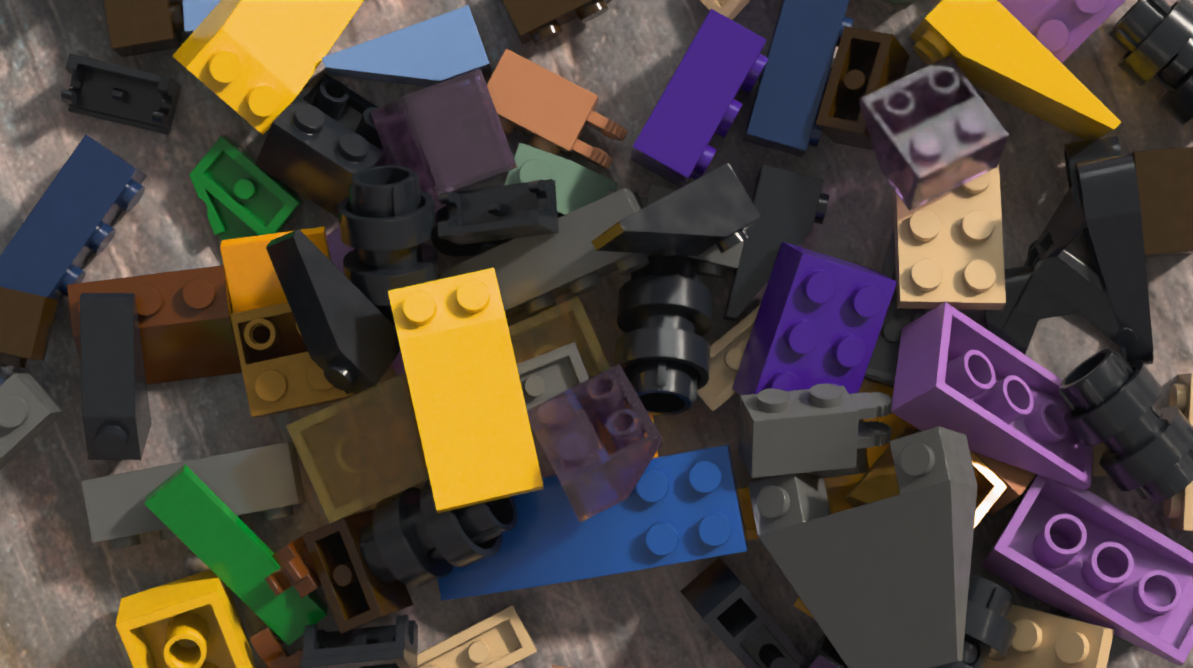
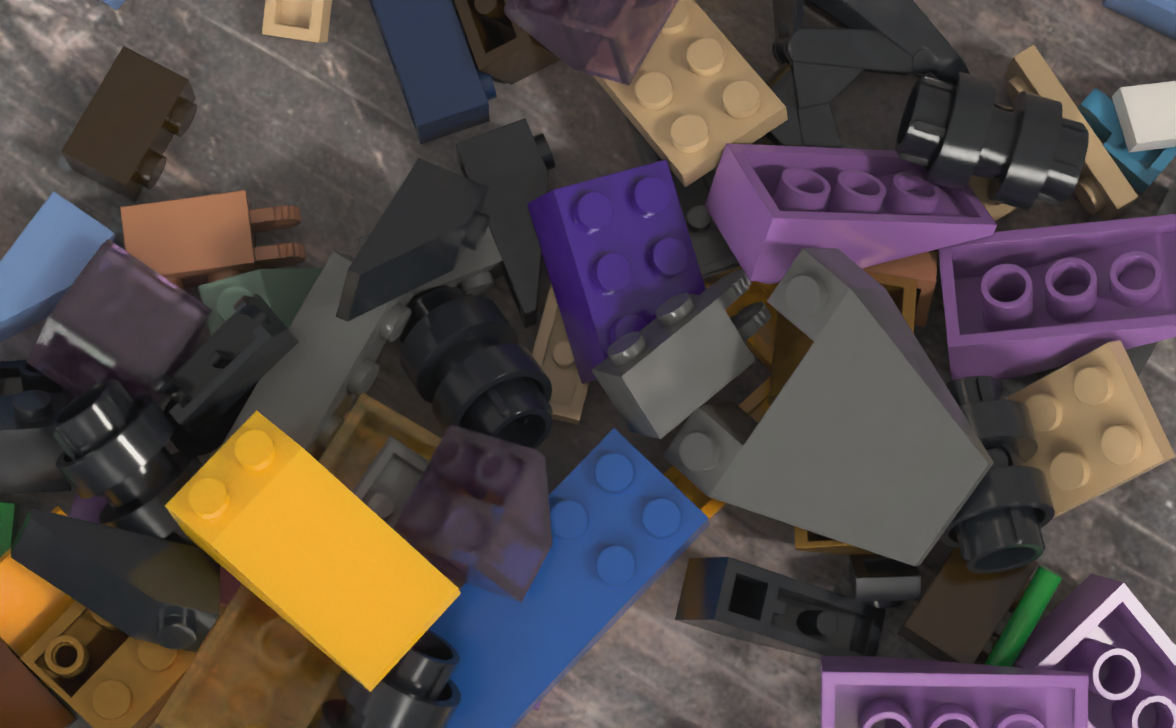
camera: 35 degrees left, 10 degrees down
(700, 100) = (349, 123): dark purple brick -> none

